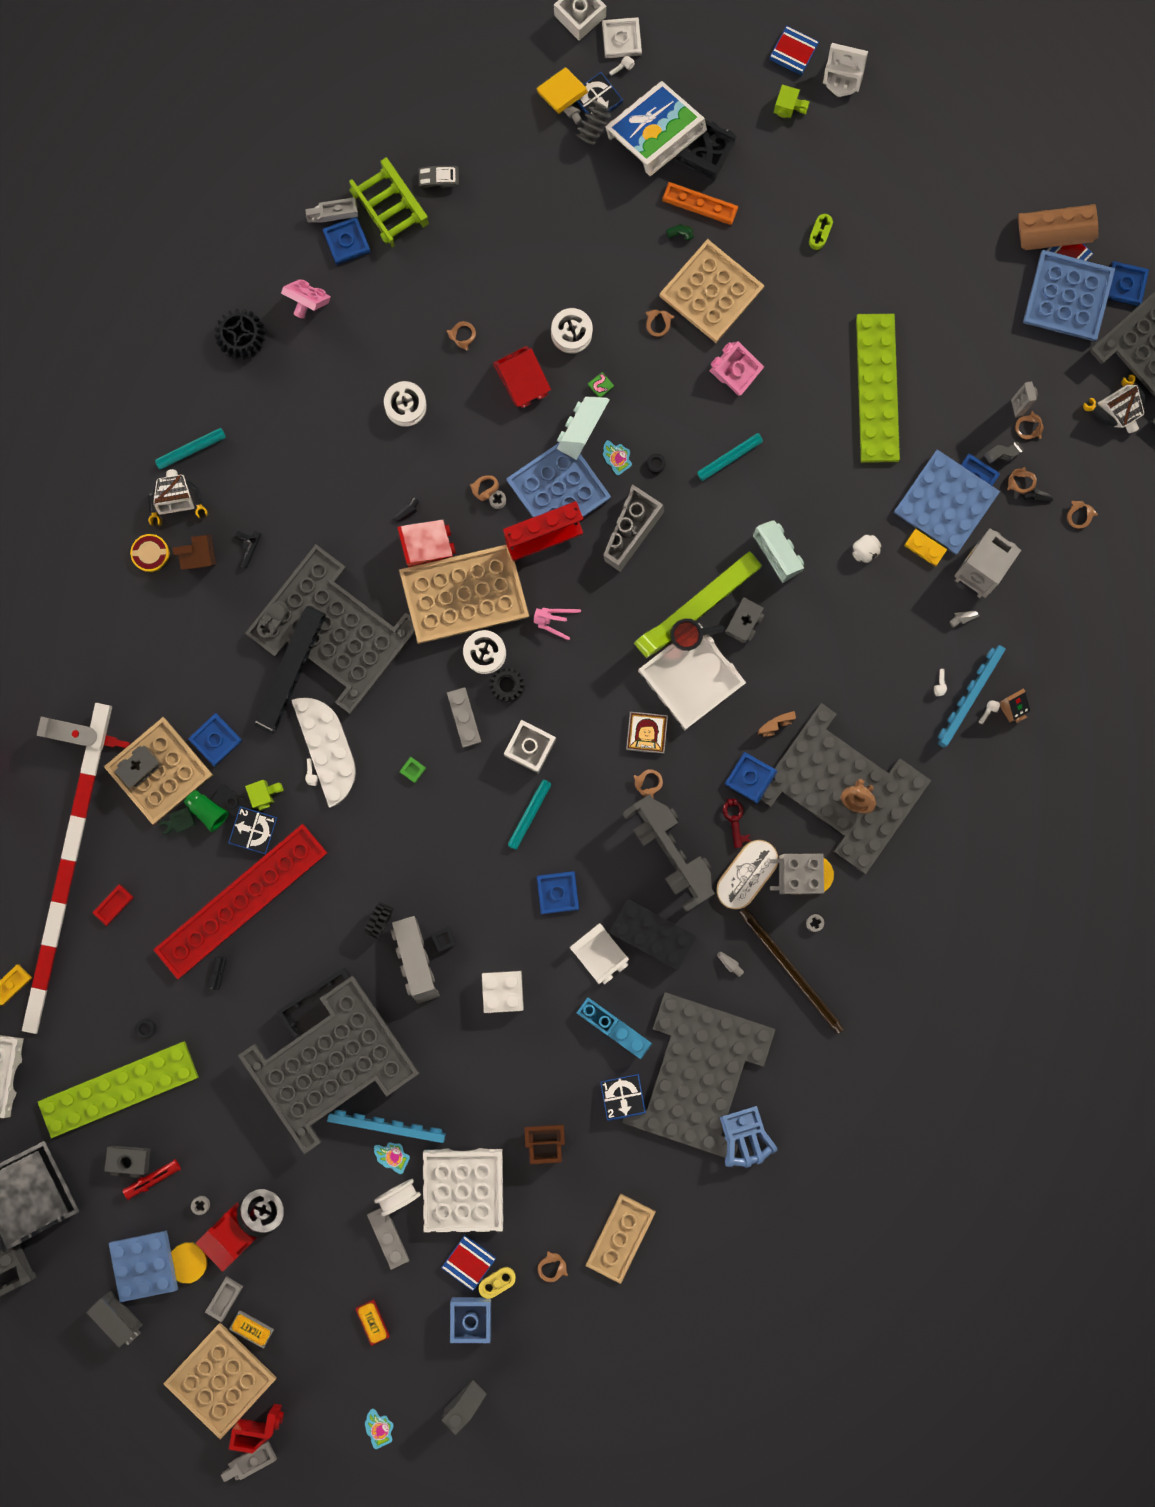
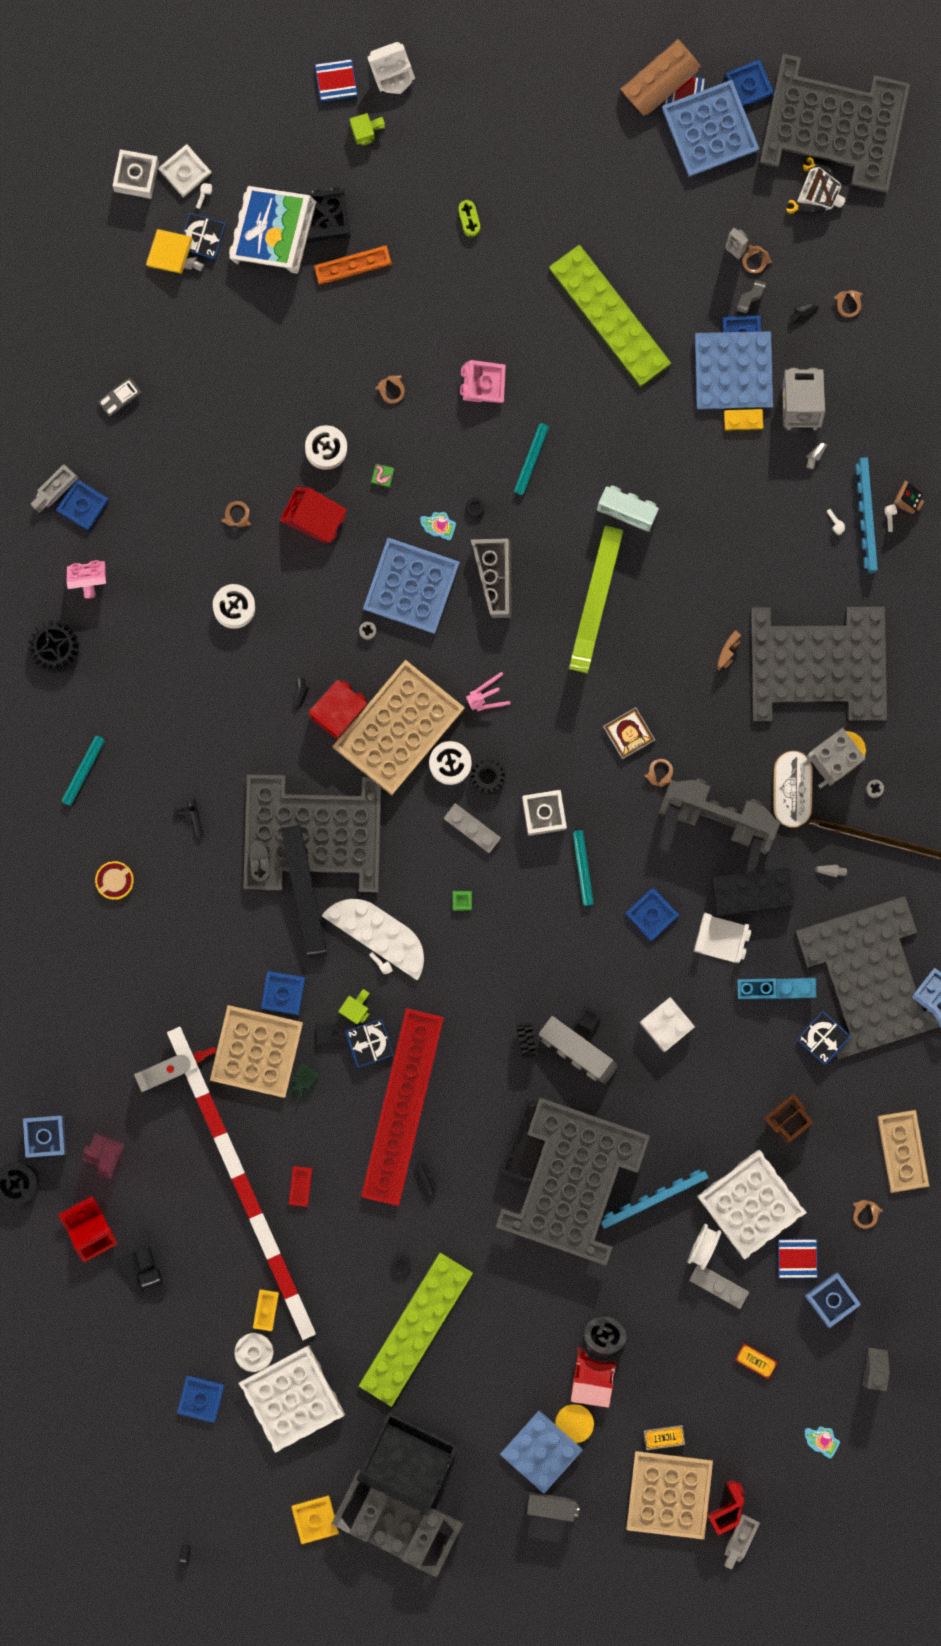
camera: 40 degrees left, 0 degrees up
(115, 1160) = (455, 1383): dark grey brick -> none
(131, 1191) = (486, 1400): red pin -> none
(147, 762) = (242, 1070): dark grey brick -> none
(173, 495) = (101, 818): torso -> none
(194, 1204) = (555, 1367): light grey bush -> none
(198, 554) = (156, 853): reddish brown plate -> none
(207, 811) = (319, 1054): green plant -> none
(224, 1299) = (624, 1430): light grey tile -> none
(392, 1156) = (675, 1221): sticker -> none
(397, 186) = (92, 429): lime fence -> none
(487, 493) = (356, 632): medium nougat piece -> none
(497, 1282) = (833, 1258): light yellow plate -> none
(543, 531) = (430, 630): red panel -> none
(581, 425) = (394, 520): light aqua slope -> none
(594, 123) = (218, 261): dark grey piece -> none
(680, 229) = (352, 298): dark green arm -> none
(688, 634) = (605, 629): piece -> none
(692, 680) = (632, 661): white piece -> none
(711, 291) = (416, 332): tan plate -> none
(737, 838) = (765, 766): dark red piece -> none
(748, 610) = (639, 596): dark grey brick -> none
(751, 777) = (739, 709): blue tile -> none
(859, 798) = (838, 662): medium nougat hair -> none
(866, 548) = (697, 455): white head -> none
(1021, 473) = (779, 301): medium nougat piece -> none

